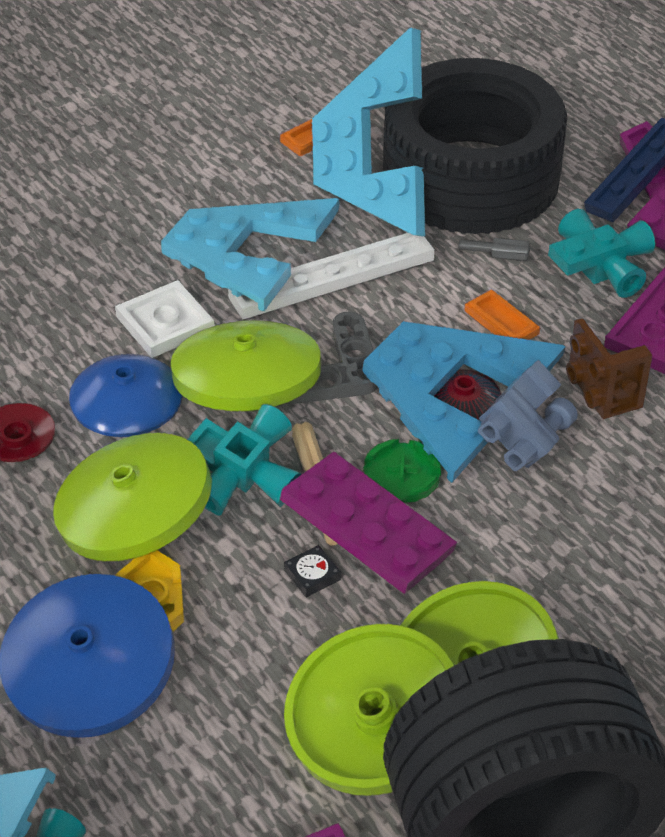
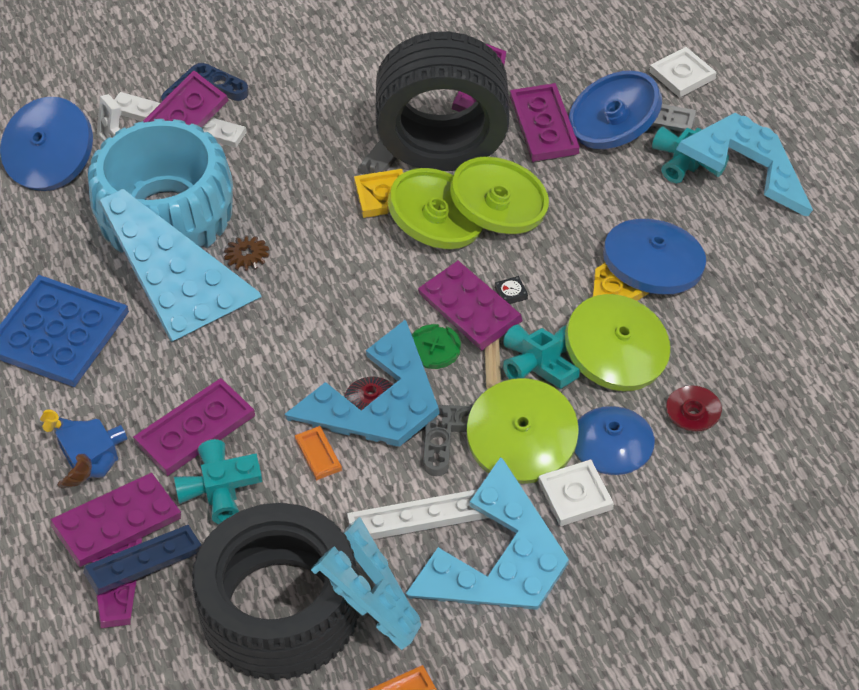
camera: 165 degrees left, 5 degrees up
(518, 424) = (343, 348): sand blue hips -> none
(609, 382) = (268, 358): reddish brown bracket -> none

